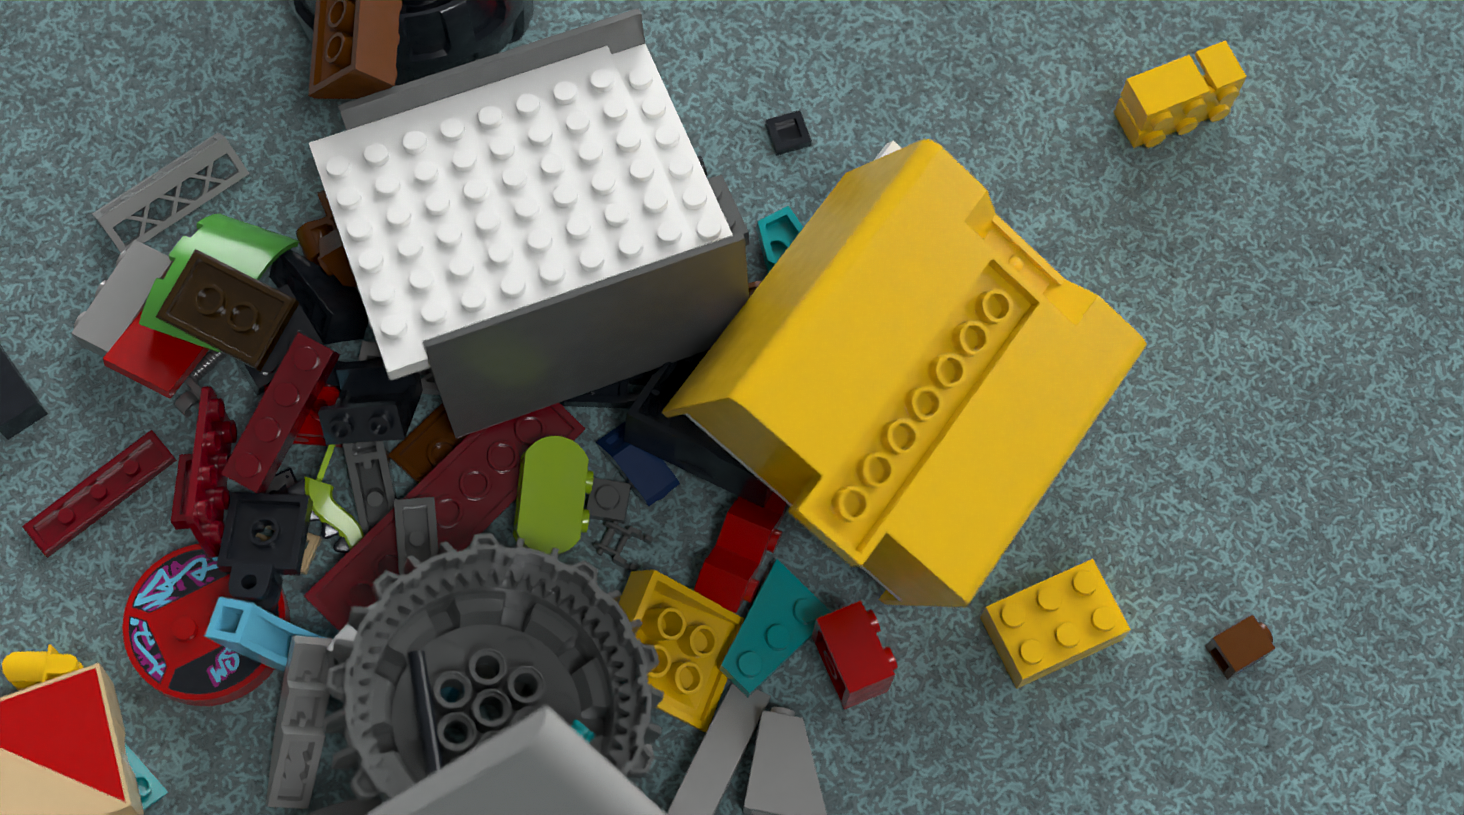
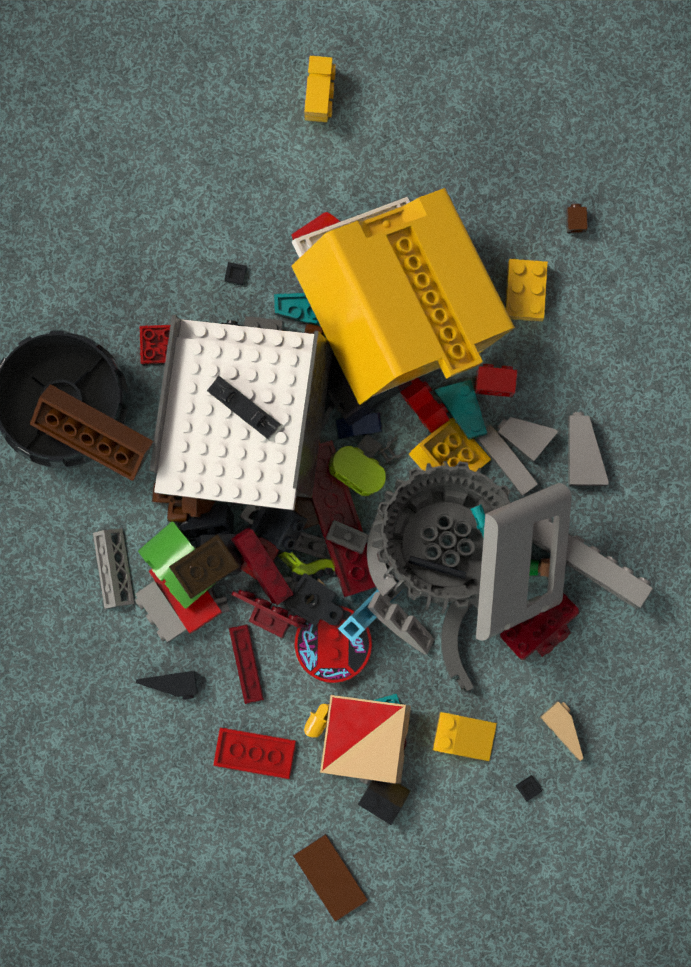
camera: 60 degrees left, 15 degrees up
(535, 199) = (243, 407): none -> black hinge

